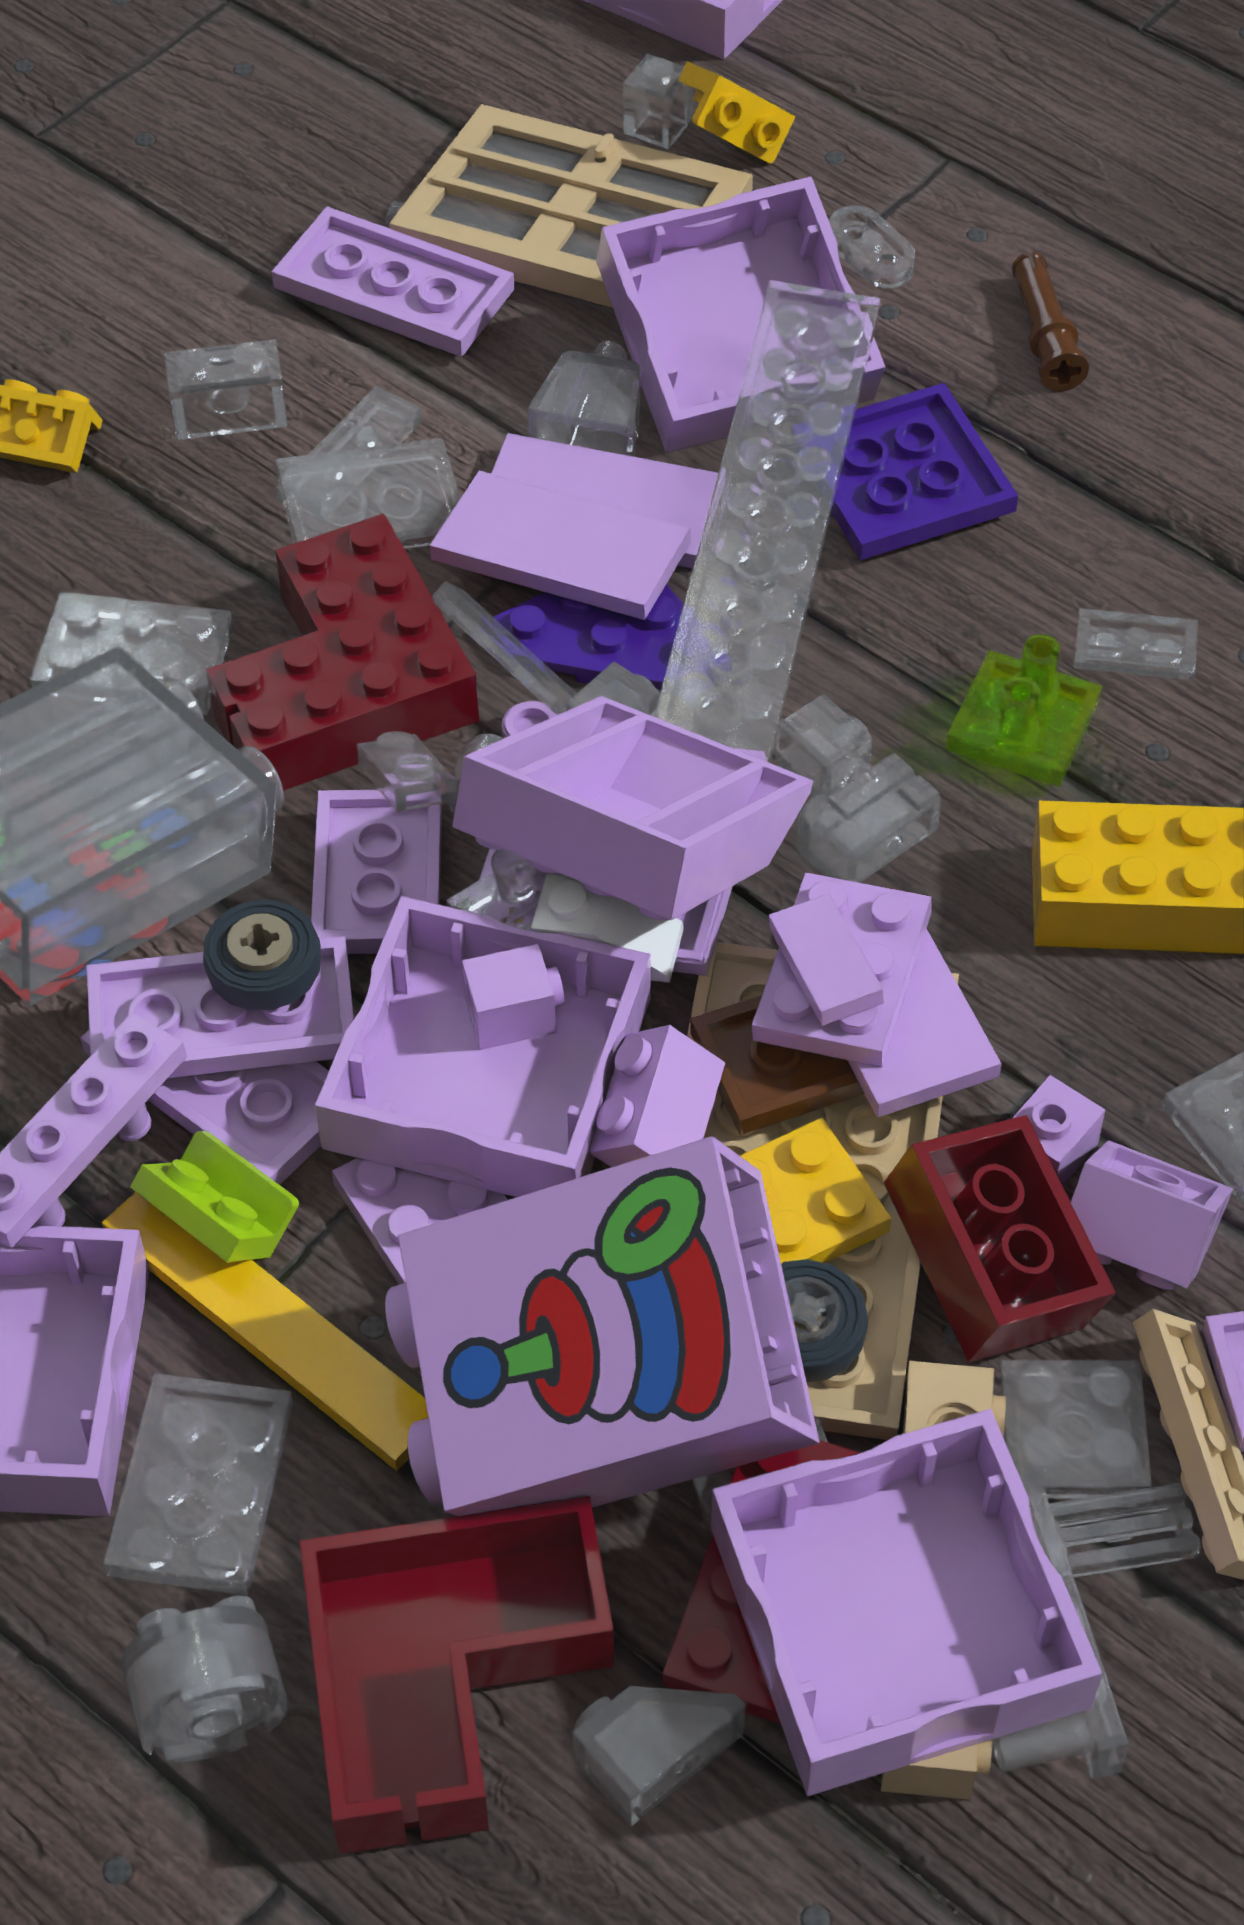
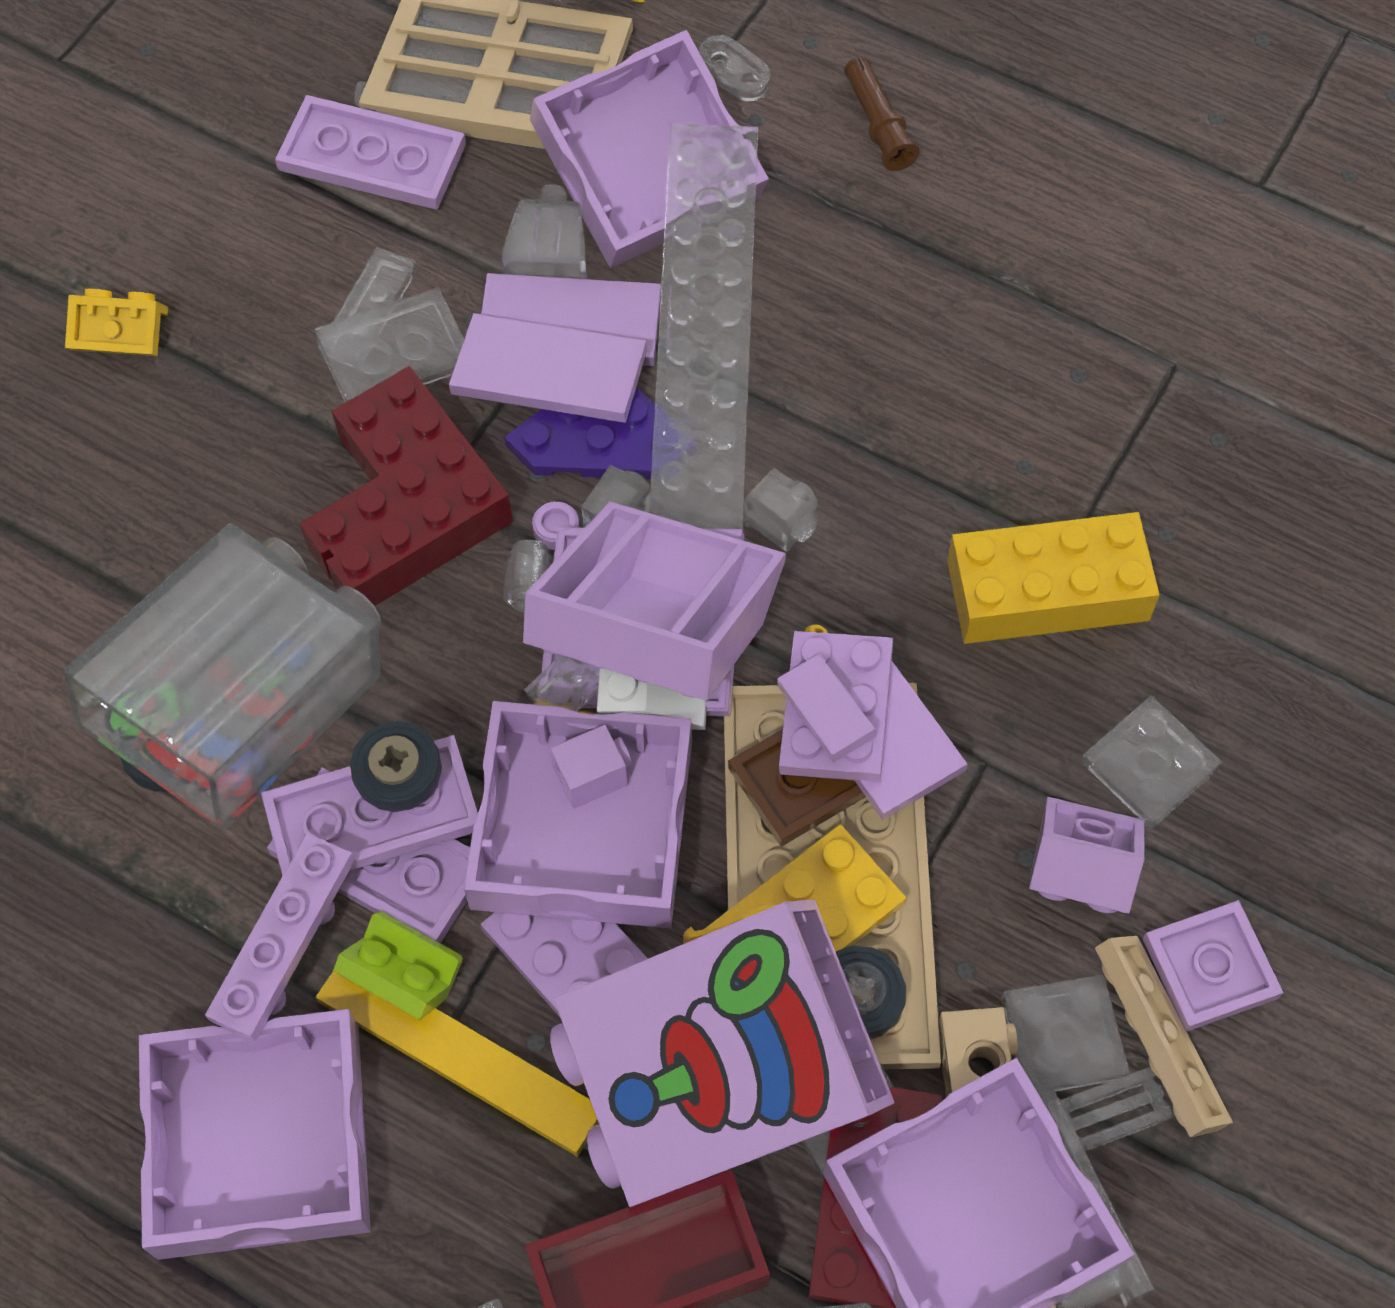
camera: 10 degrees left, 10 degrees up
(159, 636) = (255, 497): clear plate -> none
(199, 1484) = (434, 1198): clear plate -> none
(226, 389) = (259, 265): clear slope -> none
(368, 861) = (460, 663): lavender plate -> none
(406, 771) = (469, 582): clear plate -> none
(504, 647) = (526, 465): clear tile -> none
(656, 1096) = (718, 840): lavender brick -> none
(868, 820) = (825, 564): clear brick -> none
(916, 474) = (806, 261): dark purple plate -> none
(998, 1237) = (988, 901): dark red brick -> none
(1025, 713) = (924, 455): clear neon green plate -> none
(1064, 1124) = (1007, 805): lavender brick -> none
(1136, 644) = (995, 382): clear plate -> none

